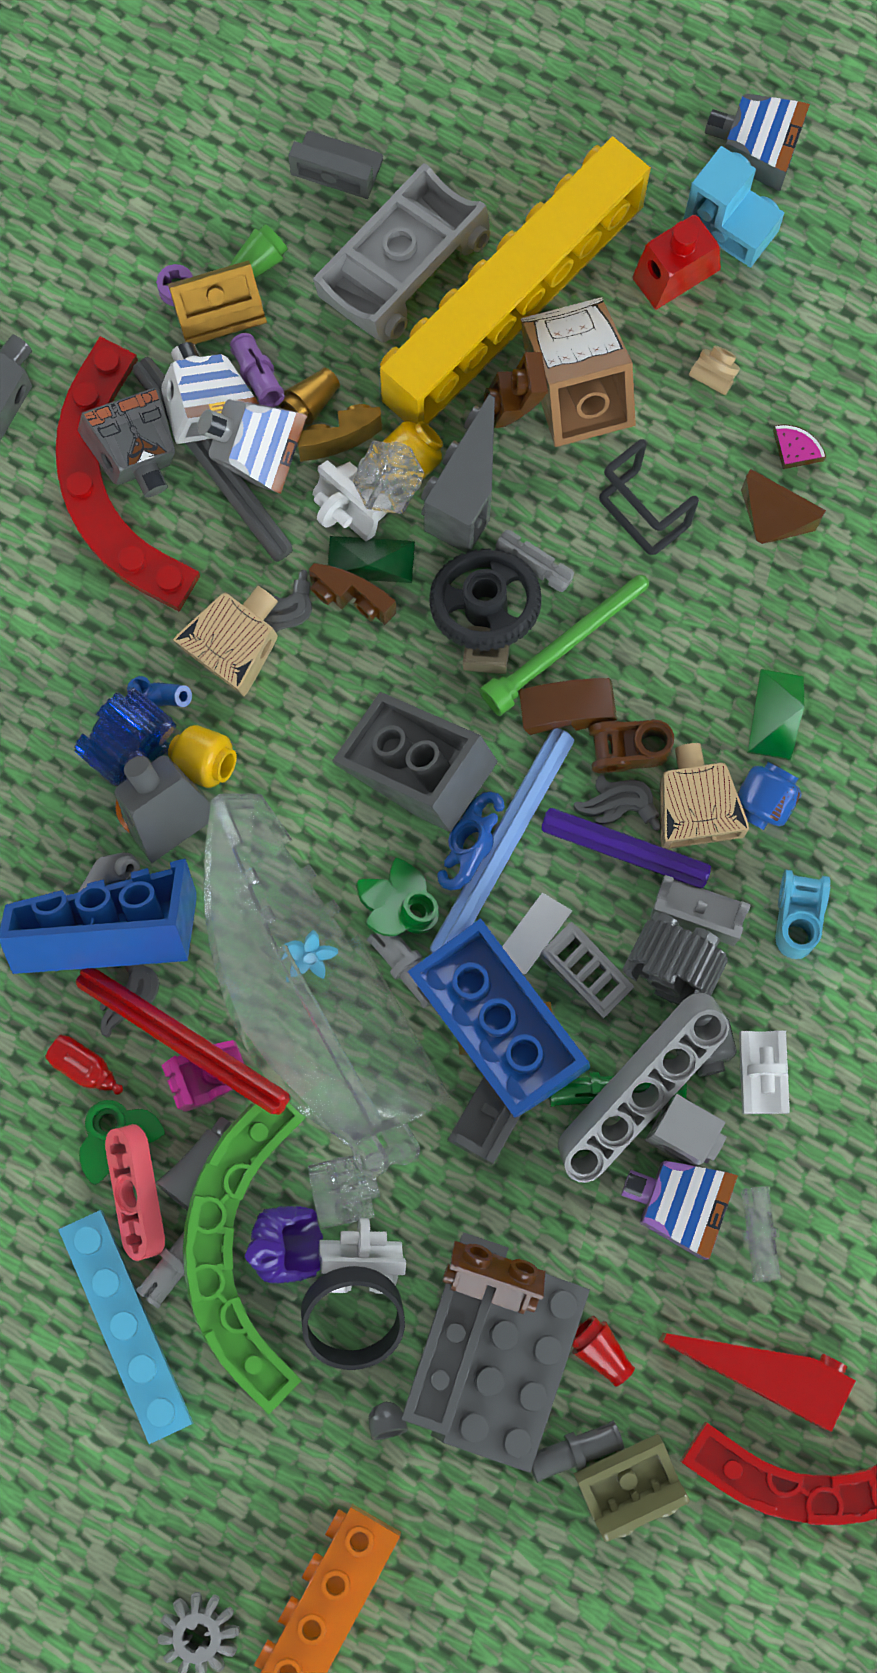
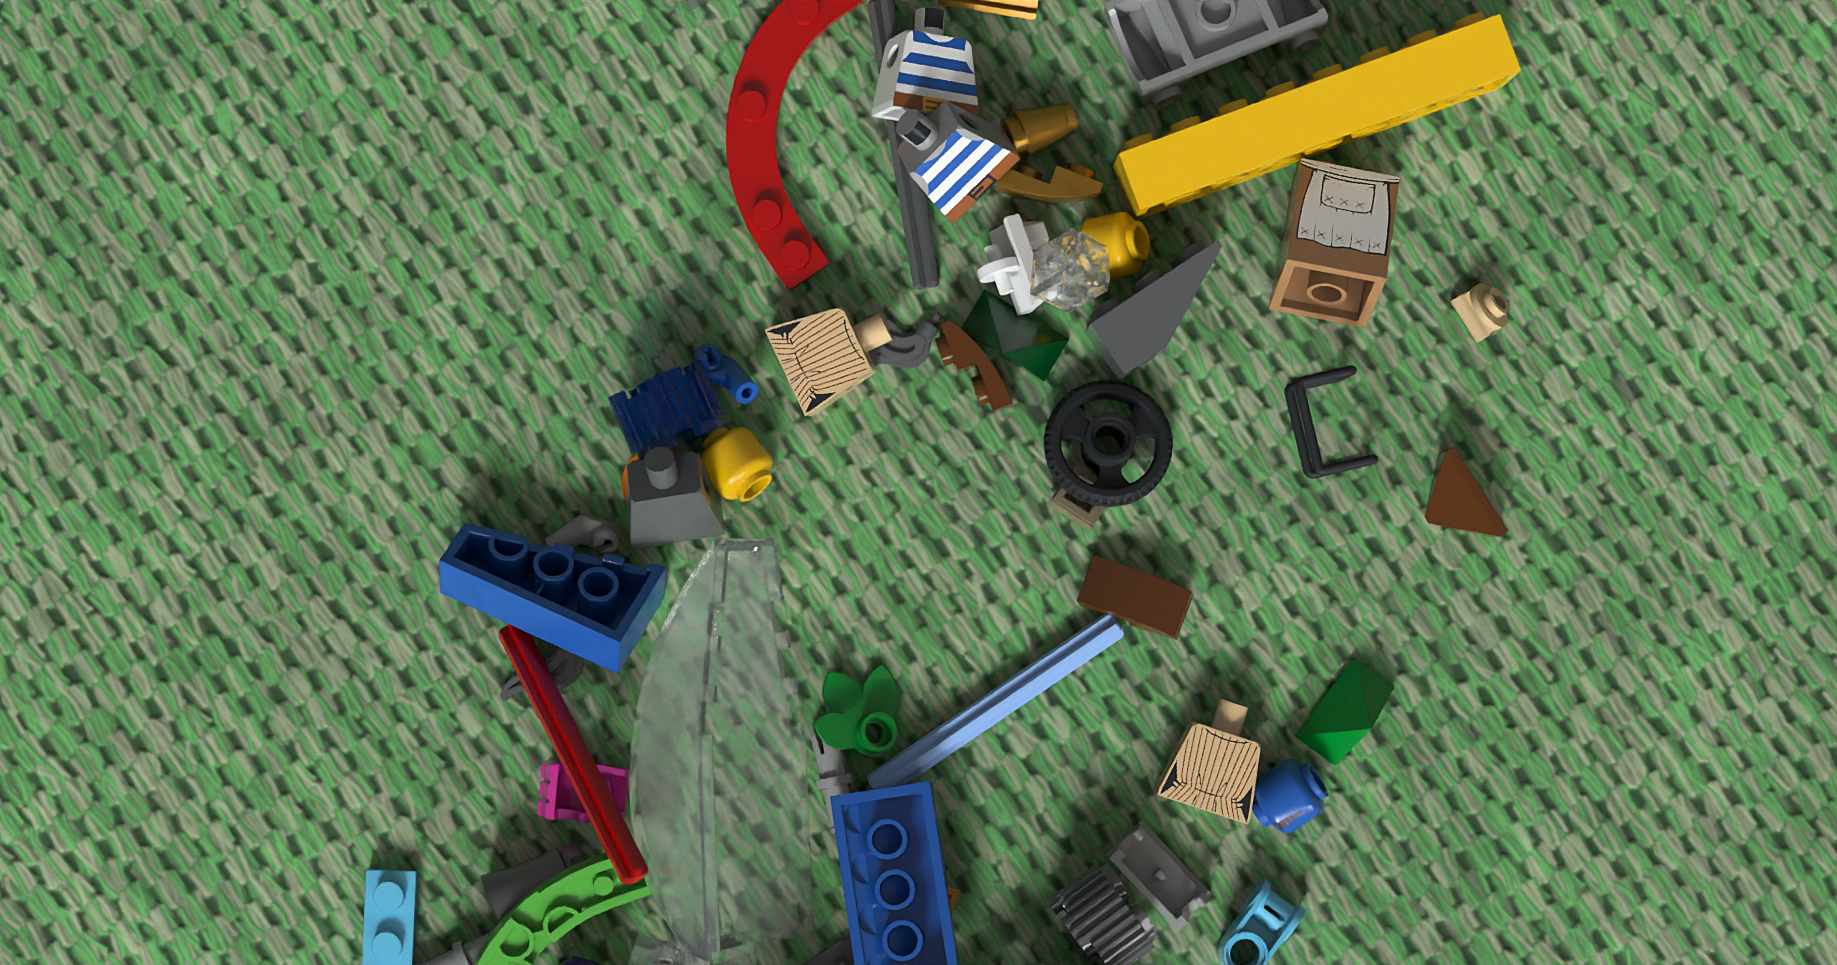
camera: 30 degrees right, 10 degrees up
(81, 1065) = (466, 717): red piece -> none
(93, 1151) = (465, 819): green plate -> none
(131, 440) = (828, 87): torso -> none
(141, 1218) = (465, 849): coral beam -> none
(256, 370) = (996, 73): medium lavender pin -> none
(310, 954) = (742, 725): medium azure plant -> none
(417, 760) = (951, 576): dark grey slope -> none
(470, 858) = (972, 668): blue piece -> none
(502, 692) = (1076, 548): bright green piece -> none
(518, 390) = (1255, 236): reddish brown slope -> none
(535, 931) = (981, 811): white sticker -> none
(540, 562) = (1183, 424): light grey axle -> none
(562, 969) = (998, 839): light grey slope -> none
(619, 798) = (1137, 718): dark grey piece -> none
(626, 848) = (1117, 773): dark purple axle -> none
(627, 745) = (1173, 670): reddish brown piece -> none
(683, 258) = (1500, 175): red torso -> none
(730, 210) = (1590, 146): medium azure brick -> none
(763, 133) = (1669, 74): torso -> none
(797, 446) = (1521, 438): dark pink tile -> none

